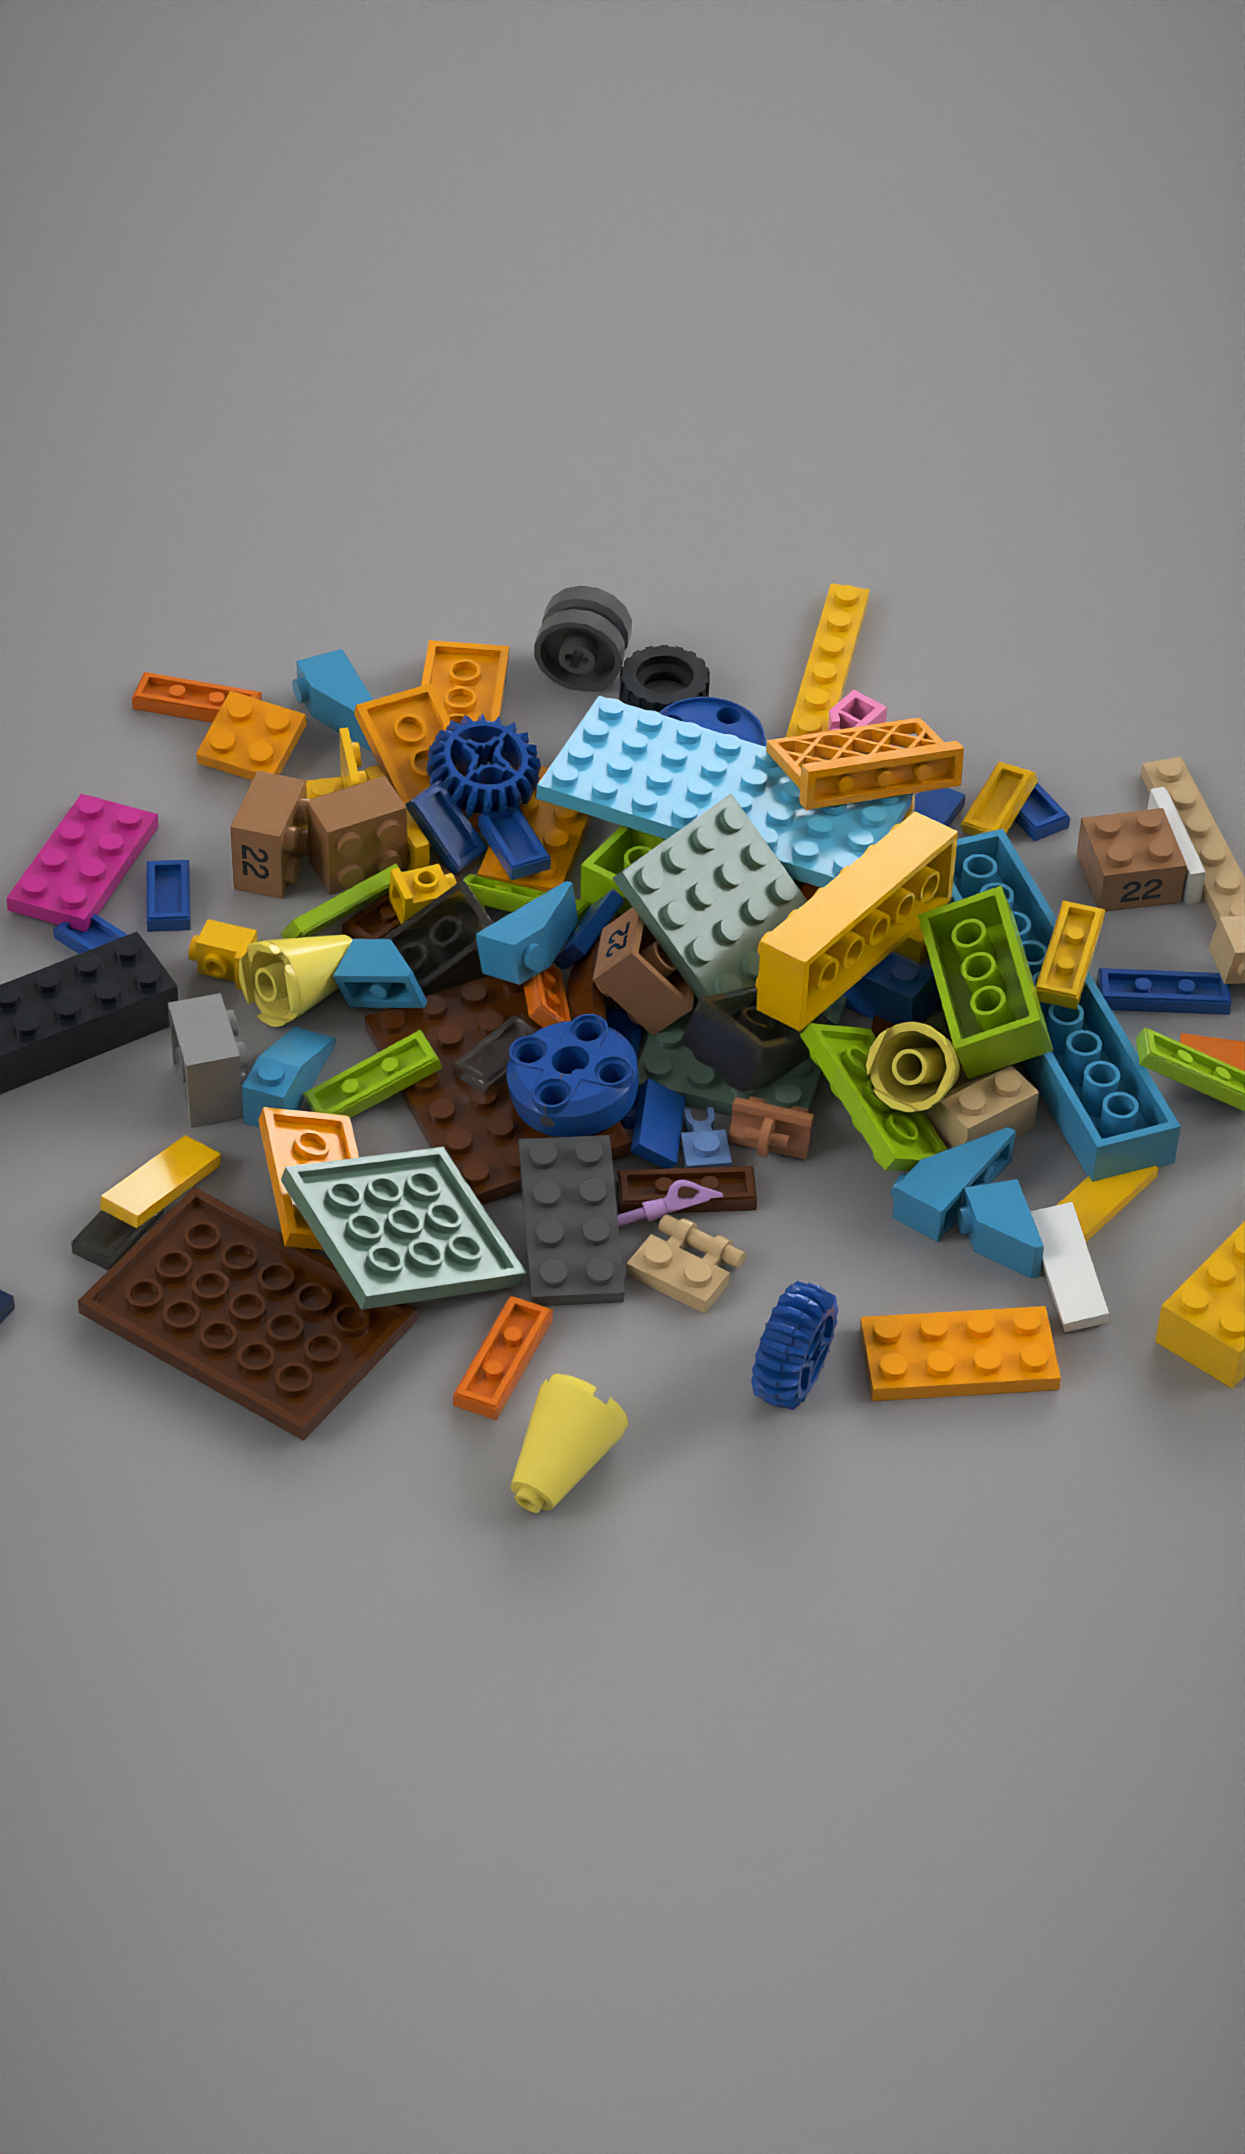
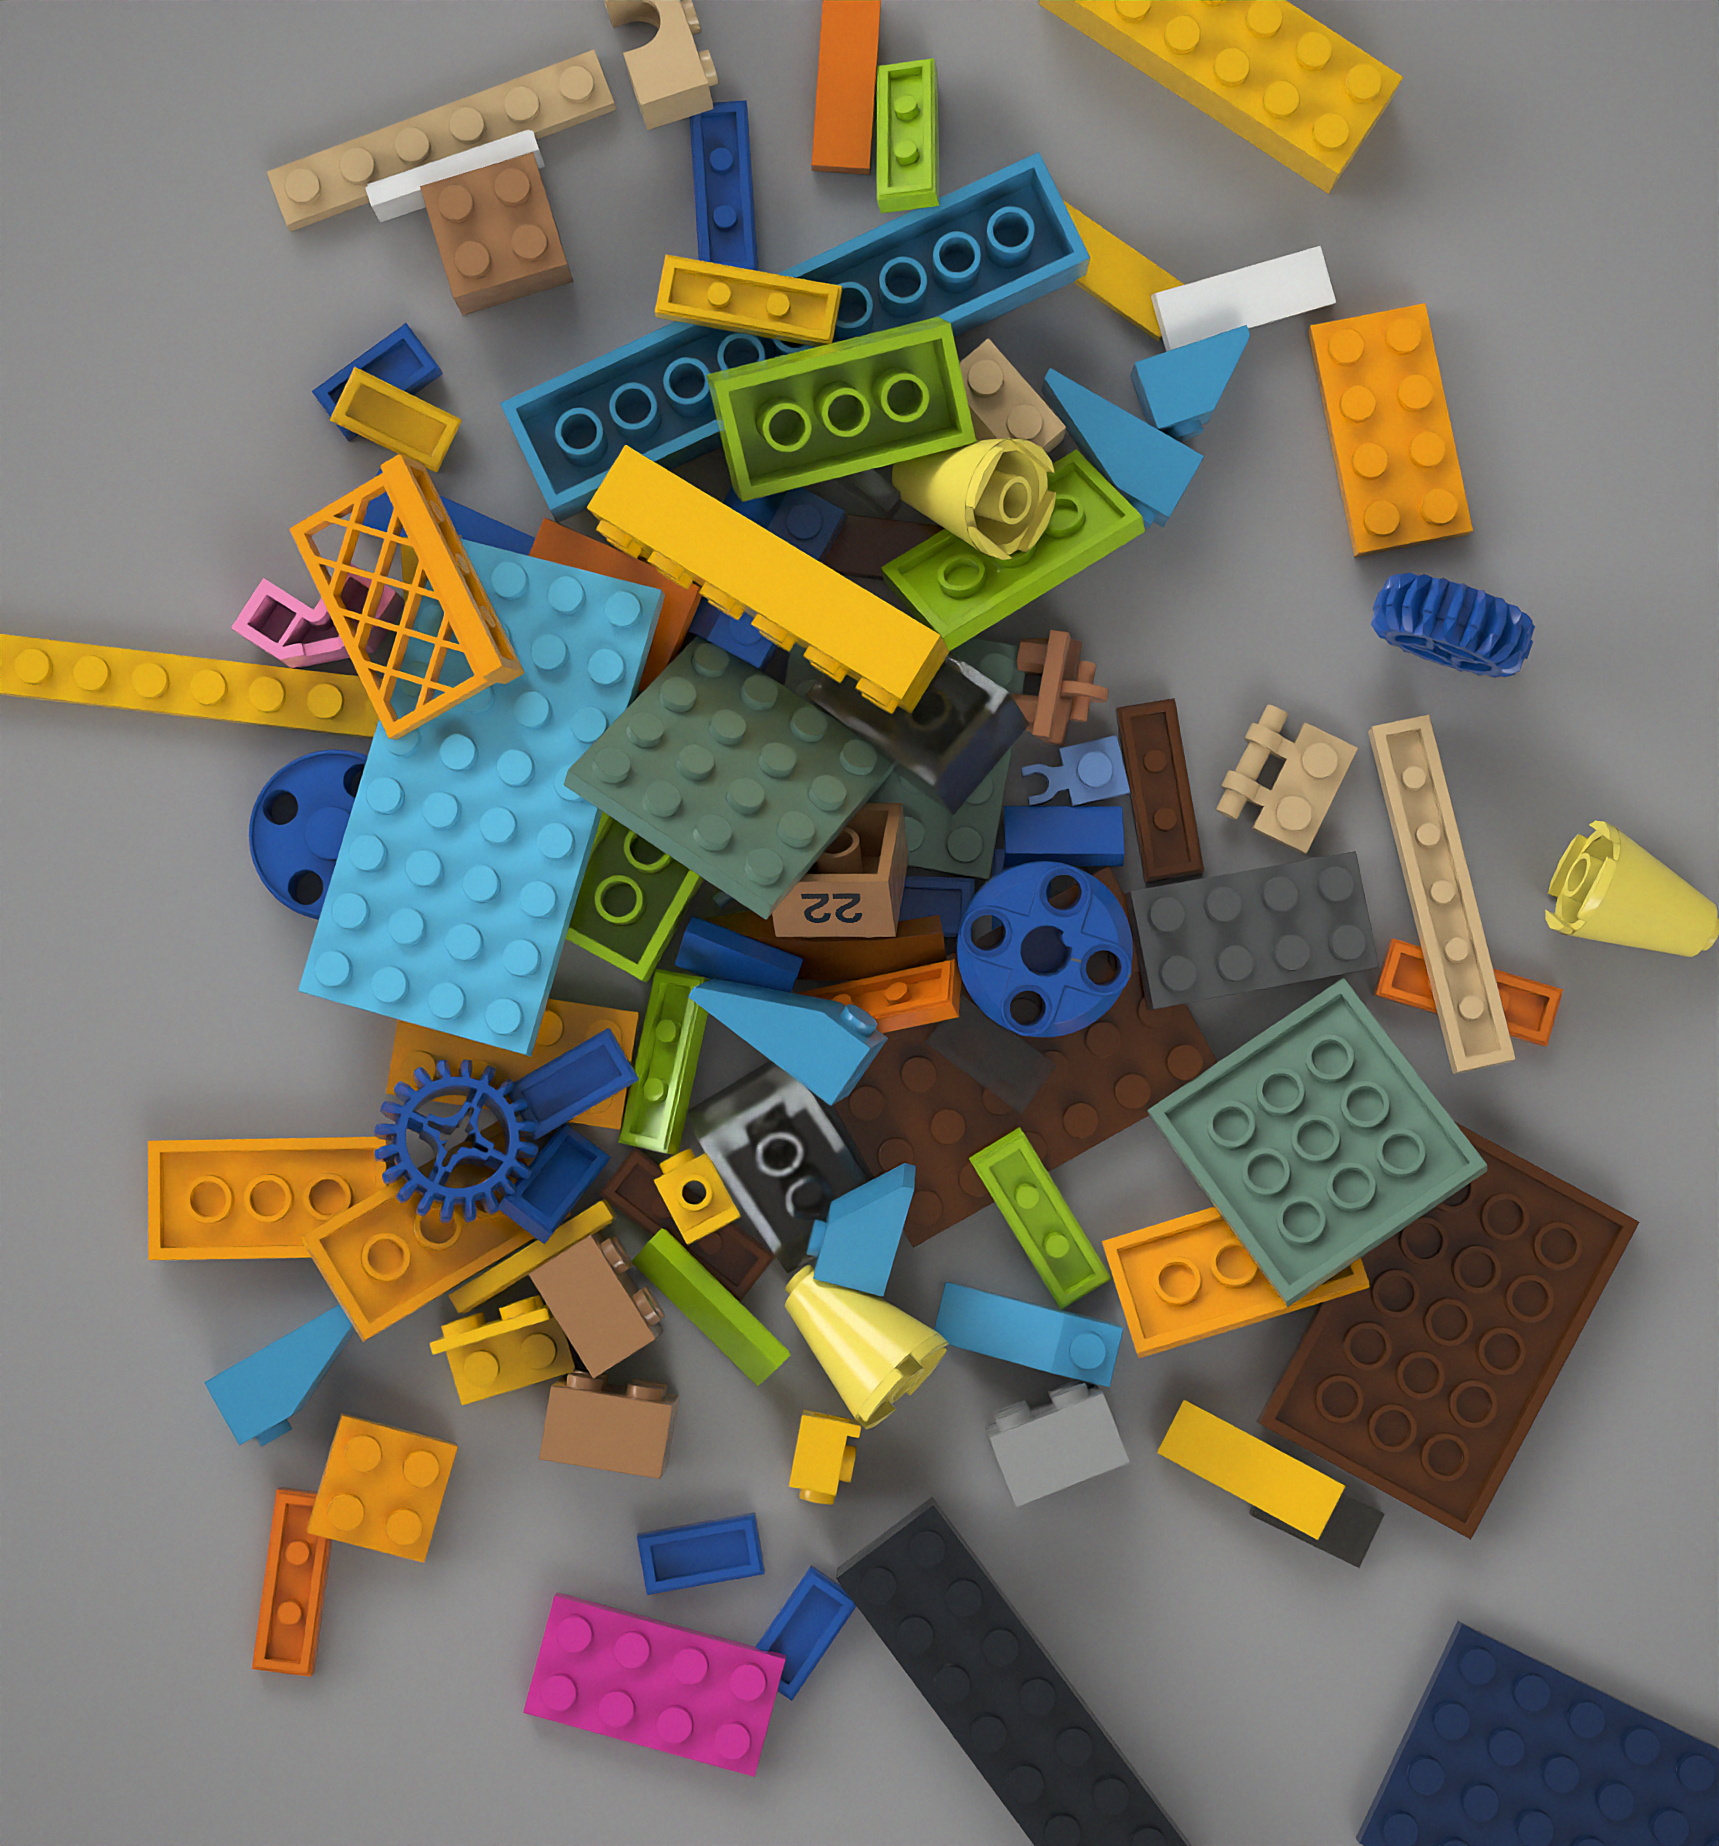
camera: 90 degrees left, 40 degrees up
(582, 1329) = (1441, 894): none -> tan plate
(583, 638) = (144, 1031): dark grey wheel -> none
(662, 664) = (154, 908): black tyre -> none
(672, 1202) = (1197, 794): lavender hand -> none

